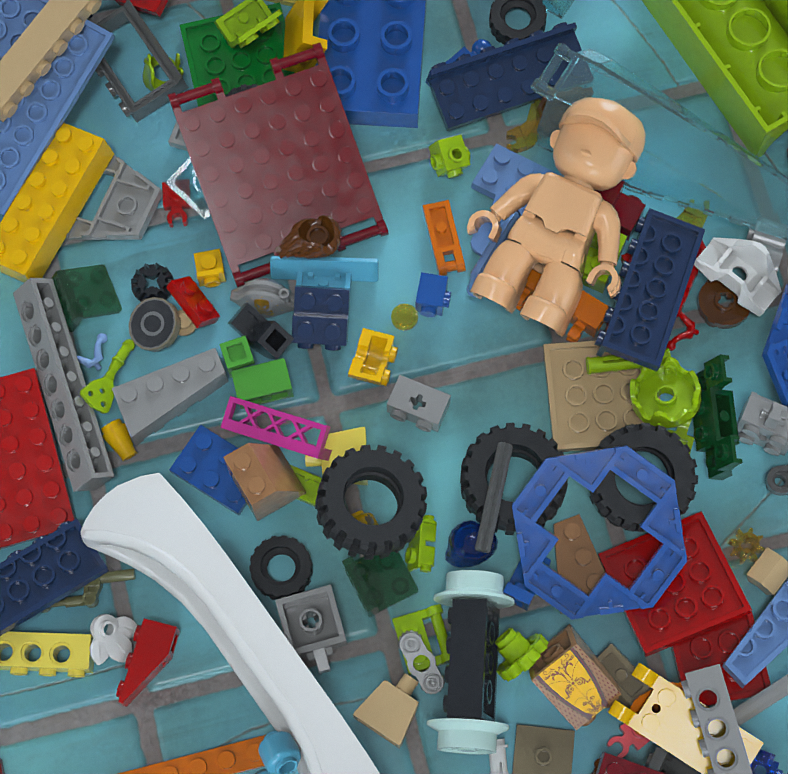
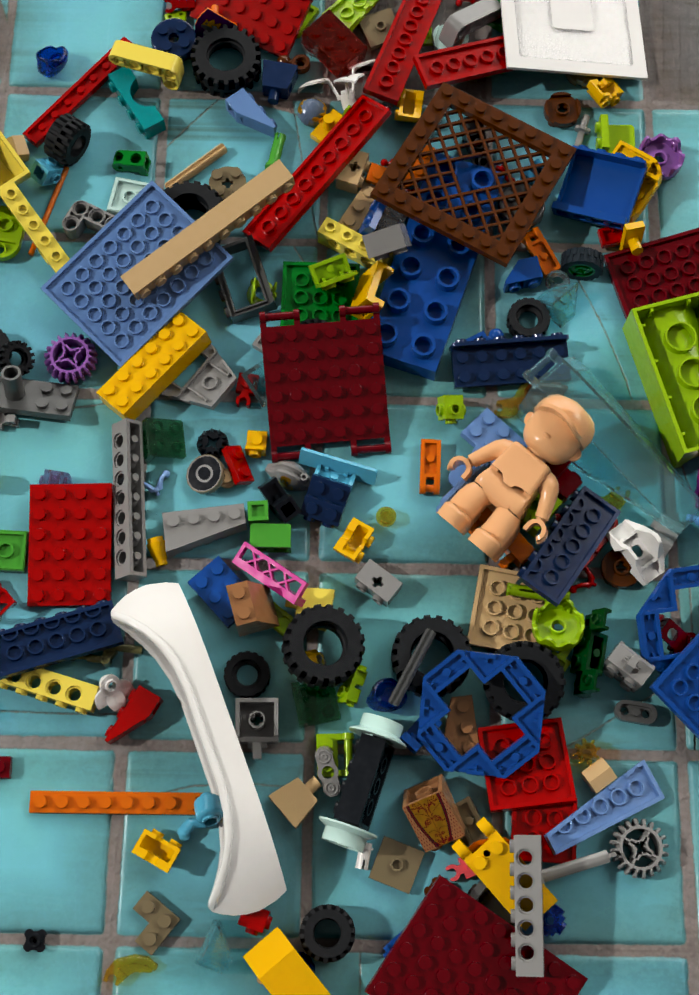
camera: 10 degrees right, 0 degrees up
(106, 382) = (160, 506): lime piece -> none
(311, 238) = (334, 442): reddish brown hair -> none
(432, 295) = (410, 506): blue brick -> none
(518, 652) = (399, 784): lime plant -> none

